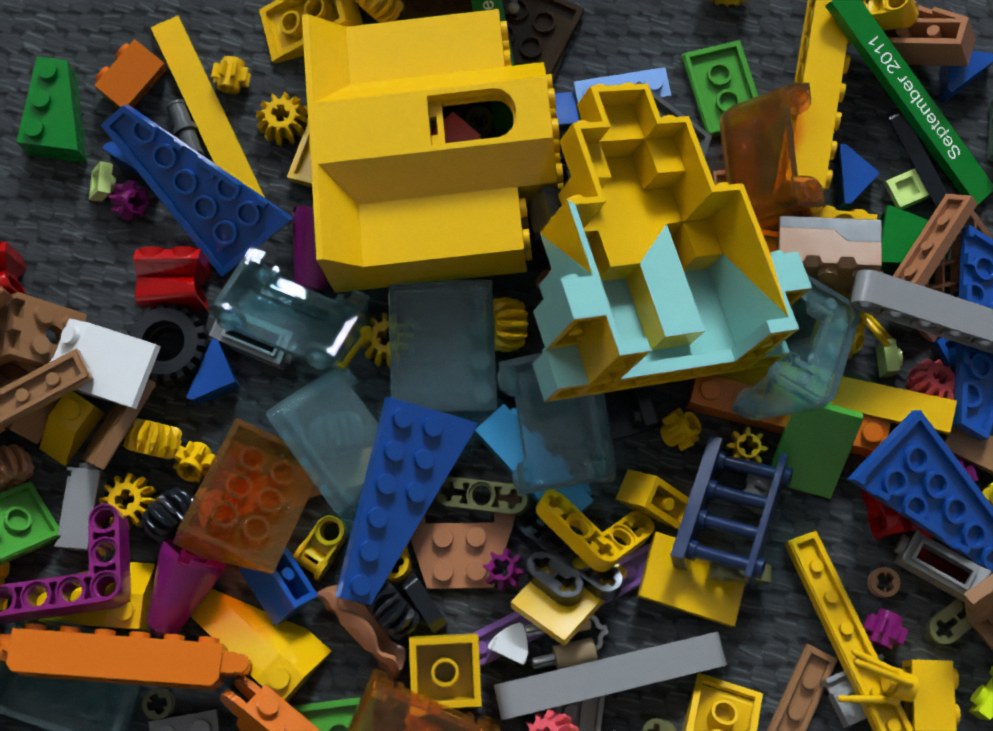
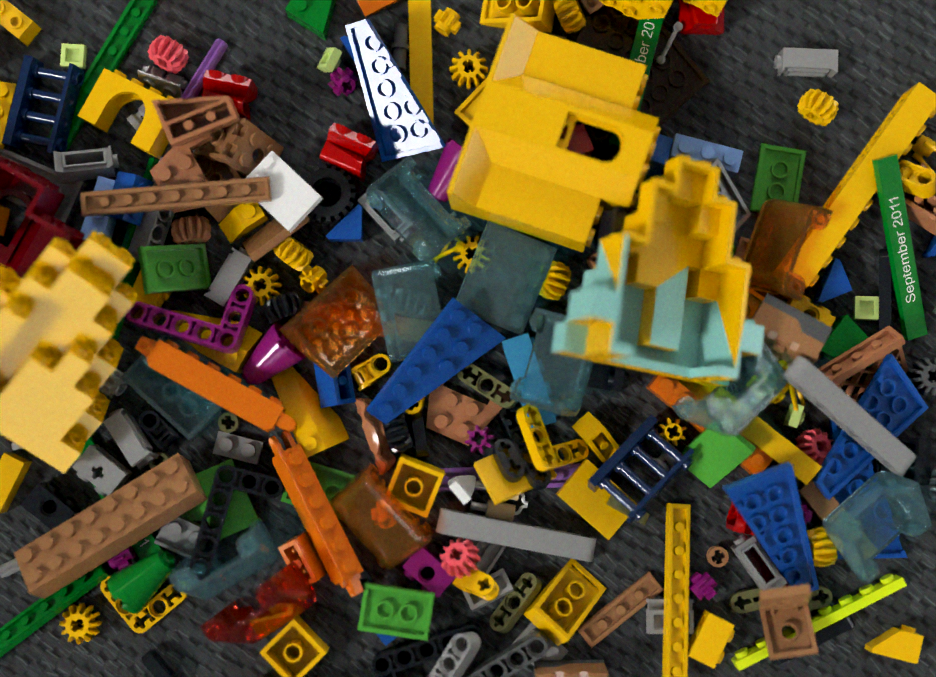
camera: 25 degrees right, 10 degrees up
(680, 429) = (634, 400): yellow gear -> none
(895, 682) = (690, 622): yellow plant -> none

